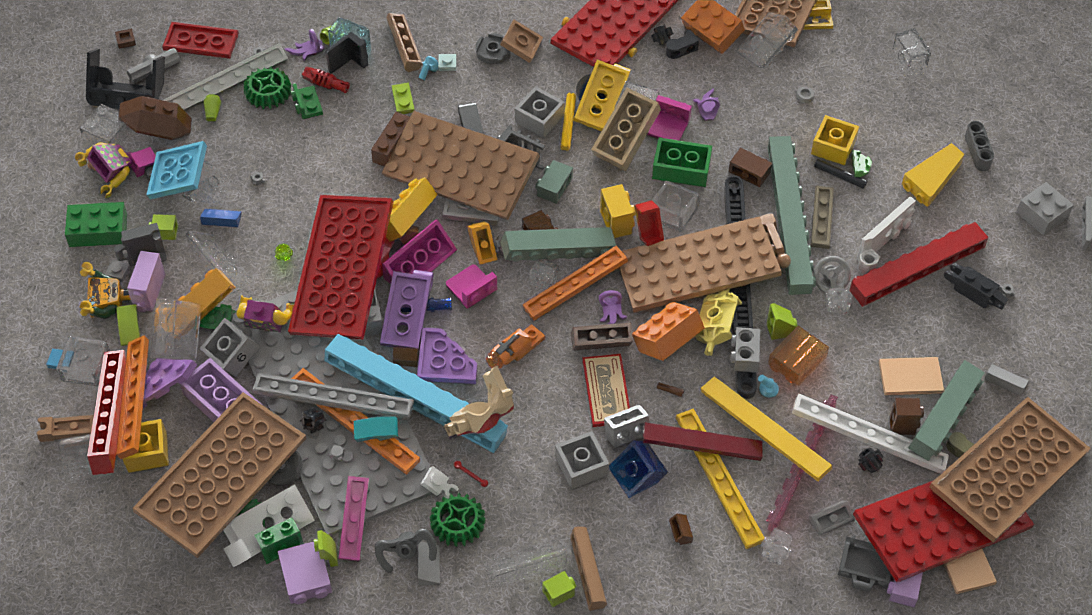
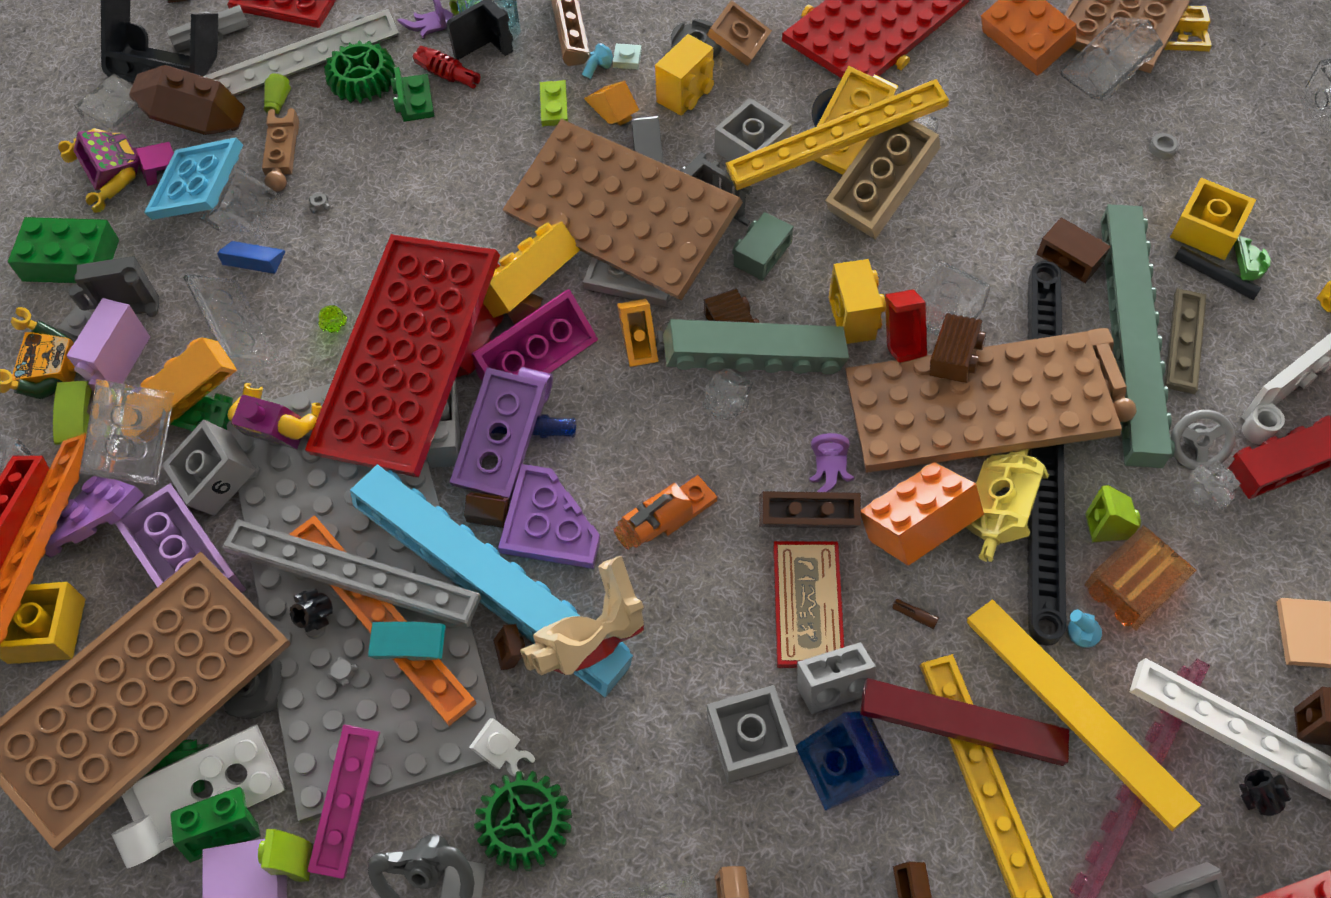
camera: 10 degrees right, 5 degrees up
(167, 226) = (163, 263): lime brick -> none
(223, 145) = (279, 148): none -> medium nougat plate
(388, 139) = (515, 164): reddish brown brick -> none
(433, 430) = (508, 646): none -> reddish brown plate
(443, 95) = (613, 103): none -> light orange slope
(458, 465) = (543, 713): red hinge -> none
(472, 285) = (611, 400): dark pink bracket -> none
(489, 73) = (684, 75): none -> yellow brick
(568, 121) = (790, 176): yellow axle -> none
(575, 283) = (776, 413): orange plate -> none
(594, 107) = (837, 134): none -> yellow tile
(662, 34) = (950, 39): black gear -> none
(671, 119) = (953, 166): dark pink bracket -> none
(681, 233) = (957, 347): none -> reddish brown brick
(682, 46) = (979, 57): black leg -> none
(682, 162) = (966, 232): green brick -> none
(706, 108) = (1012, 156): medium lavender piece -> none
(747, 349) = (1059, 562): light grey brick -> none

